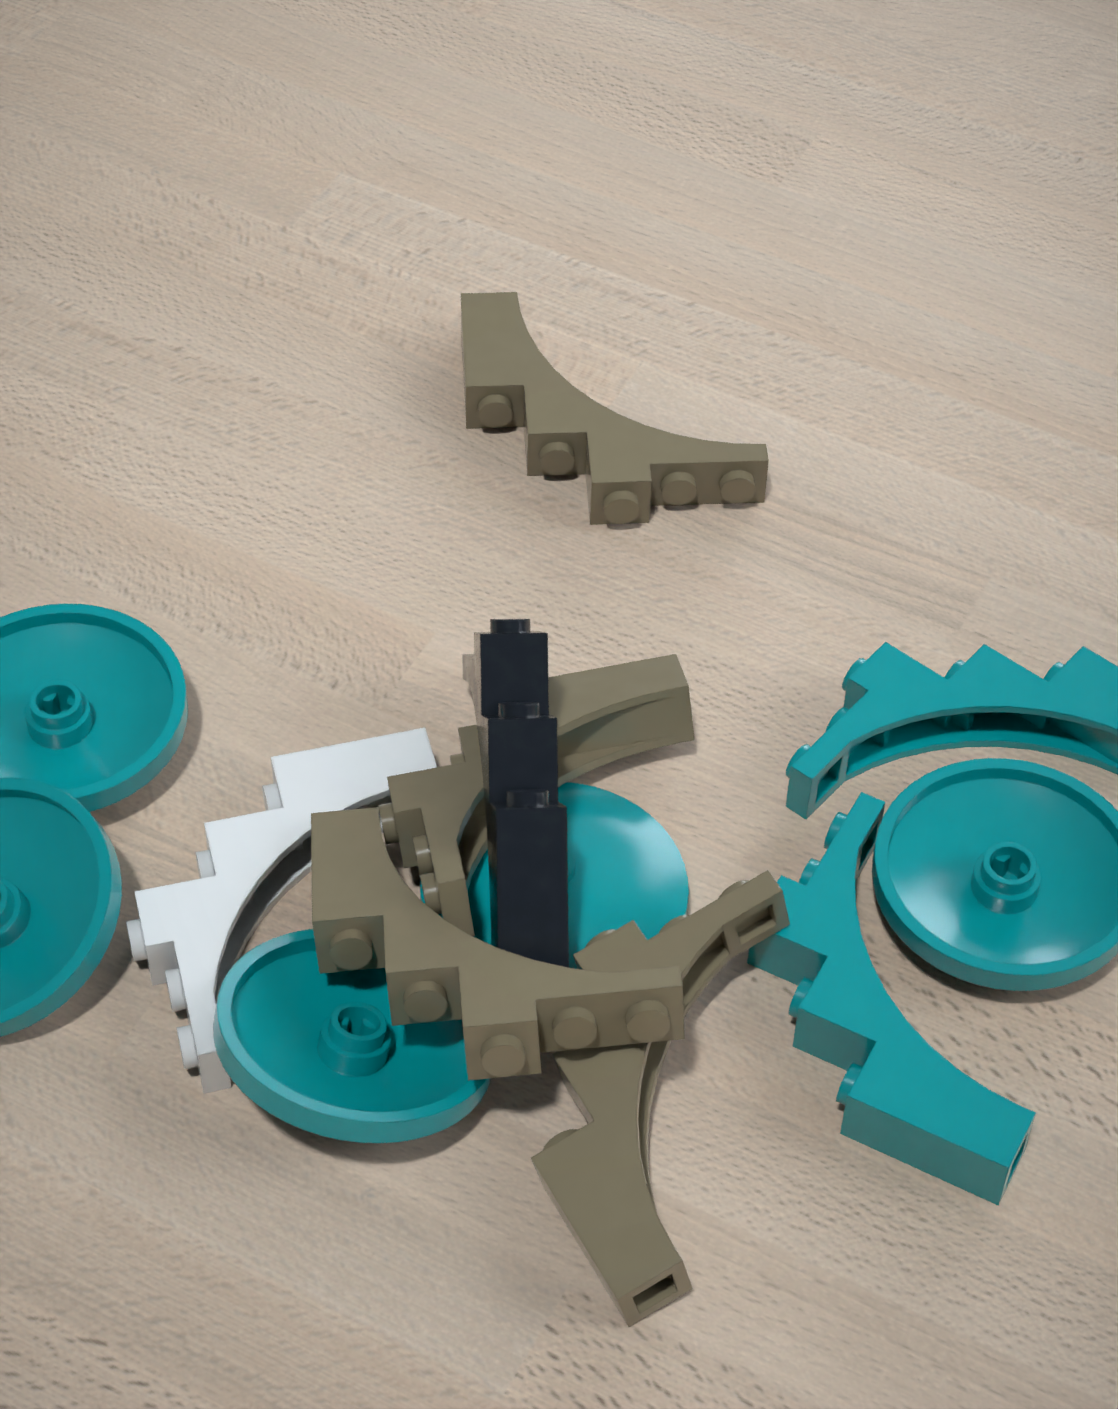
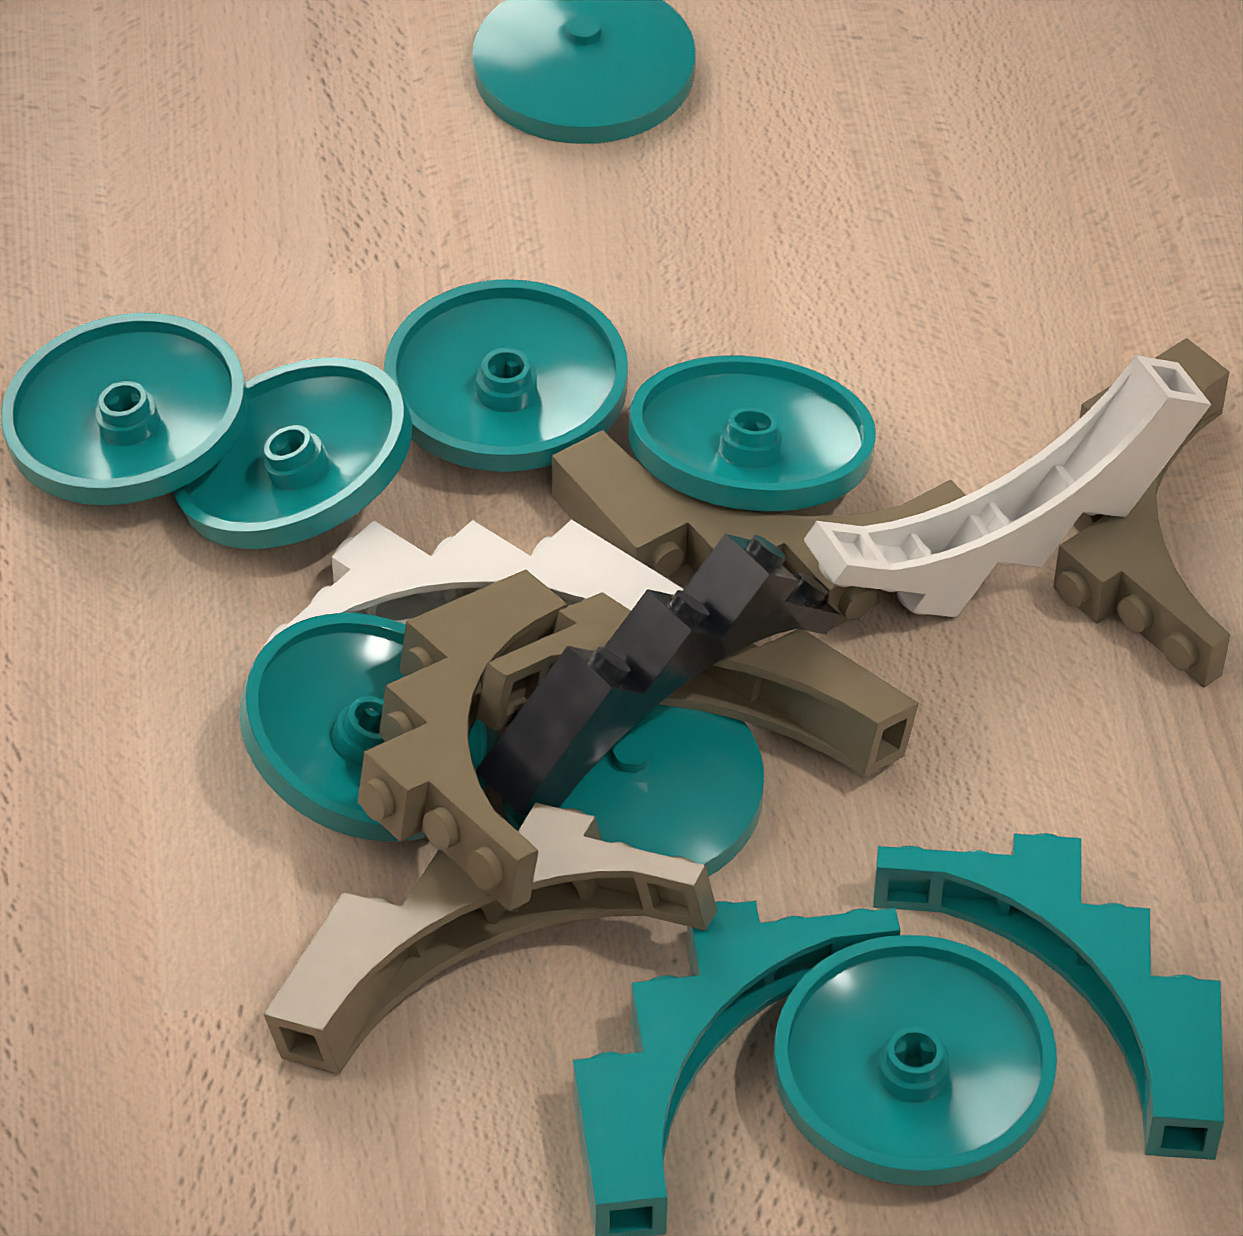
camera: 55 degrees right, 0 degrees up
(288, 593) = (751, 433): none -> teal dish
(377, 684) = (668, 529): none -> dark tan arch
(554, 479) = (1023, 516): none -> white arch

